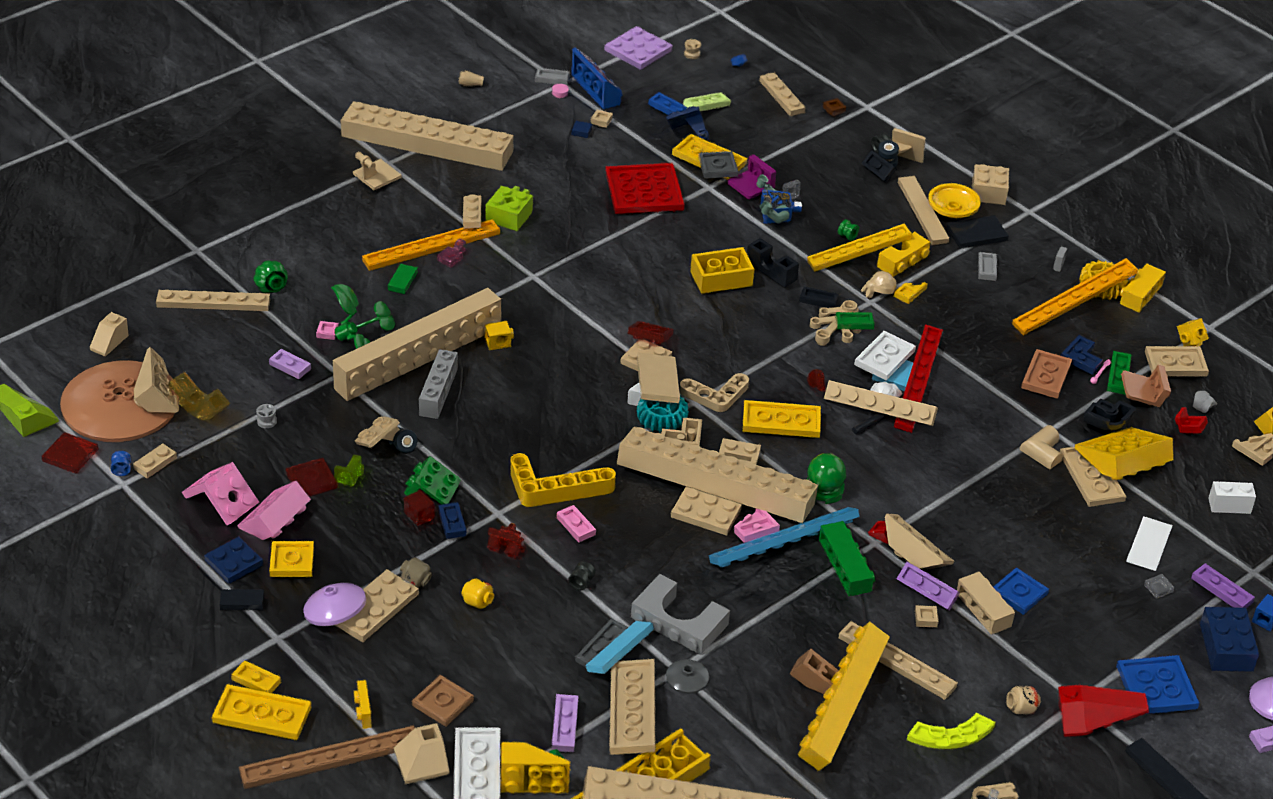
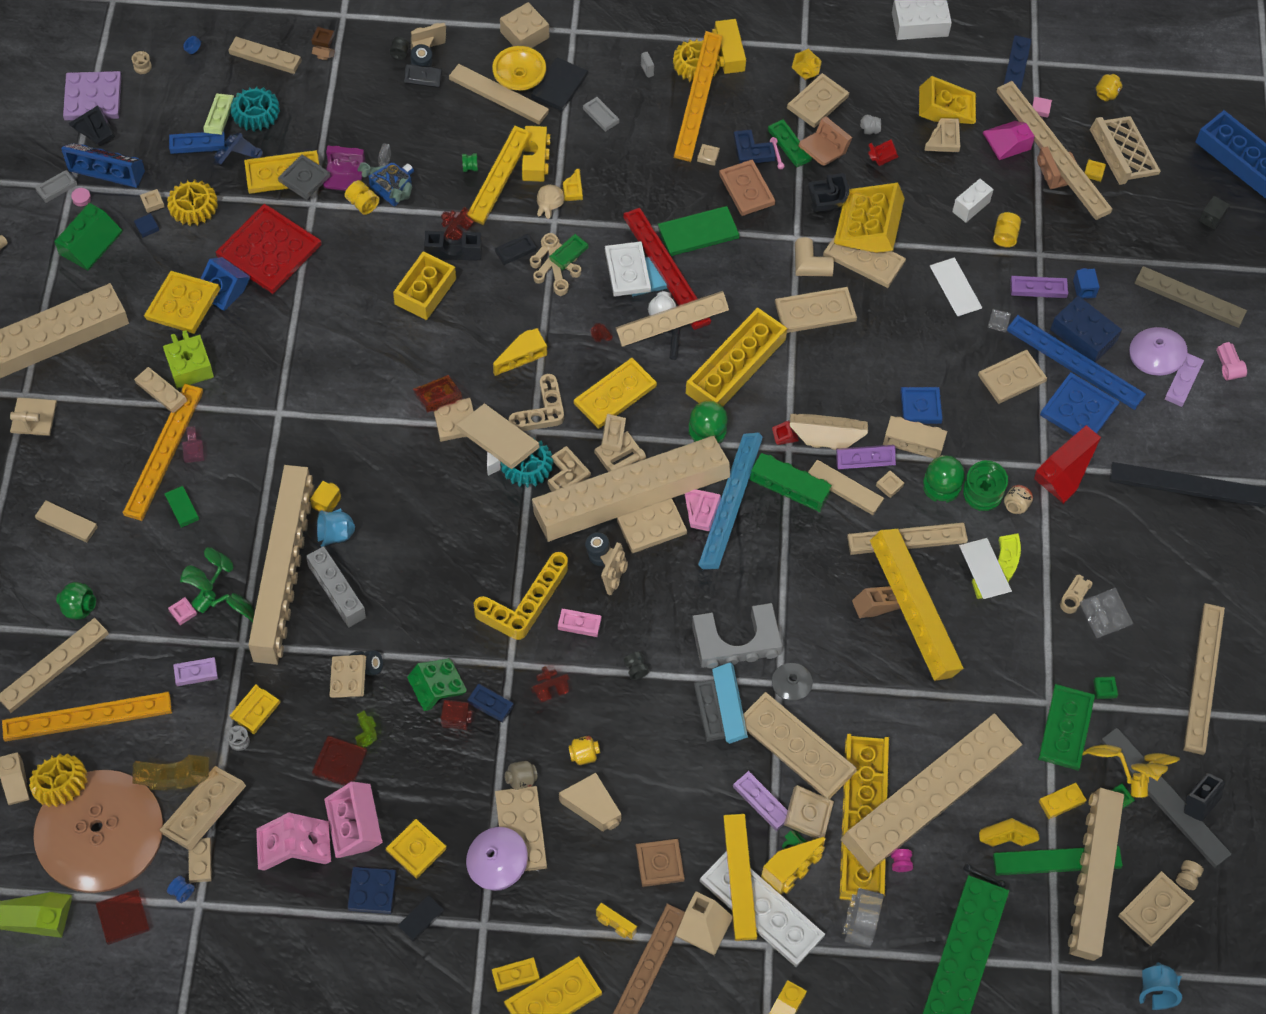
camera: 45 degrees left, 20 degrees up
(127, 351) = (58, 780): none -> yellow gear
(152, 386) = (126, 800): tan wedge -> none
(194, 431) = (202, 808): none -> tan plate
(196, 340) = (86, 716): none -> light orange tile
(297, 409) = (255, 709): none -> yellow plate
(322, 237) = (66, 521): none -> tan tile
(443, 625) = (592, 803): none -> tan slope
(480, 351) = (334, 527): none -> dark azure helmet
(482, 748) = (740, 877): none -> yellow tile
(535, 109) = (87, 237): none -> green slope
(548, 176) = (182, 302): none -> yellow plate
(588, 184) = (228, 277): none -> blue slope
(588, 750) = (808, 812): none -> tan tile
(617, 60) = (94, 126): none -> black wing
(626, 134) = (181, 202): none -> yellow gear
(640, 504) = (613, 559): none -> tan plate
(735, 114) = (254, 103): none -> teal gear
(741, 350) = (523, 350): none -> yellow slope
(744, 200) = (360, 196): none -> yellow wheel
(745, 434) = (613, 433): none -> tan plate
(797, 253) = (462, 219): none -> clear red hips
(823, 114) = (323, 52): none -> medium nougat plate
(888, 595) = (847, 488): none -> tan tile
(900, 458) = (737, 359): none -> yellow brick
(936, 722) = (985, 568): none -> white sticker
(974, 374) = (698, 231): none -> green tile
(974, 640) = (943, 479): none -> green tile
(1002, 666) = (985, 485): none -> green wheel
(1008, 478) = (816, 309): none -> tan tile
(1042, 338) = (708, 154): none -> tan tile
(1124, 627) = (1012, 376): none -> tan tile
(1196, 658) = (1076, 362): none -> blue tile
(1239, 533) = (1007, 229): none -> yellow wheel

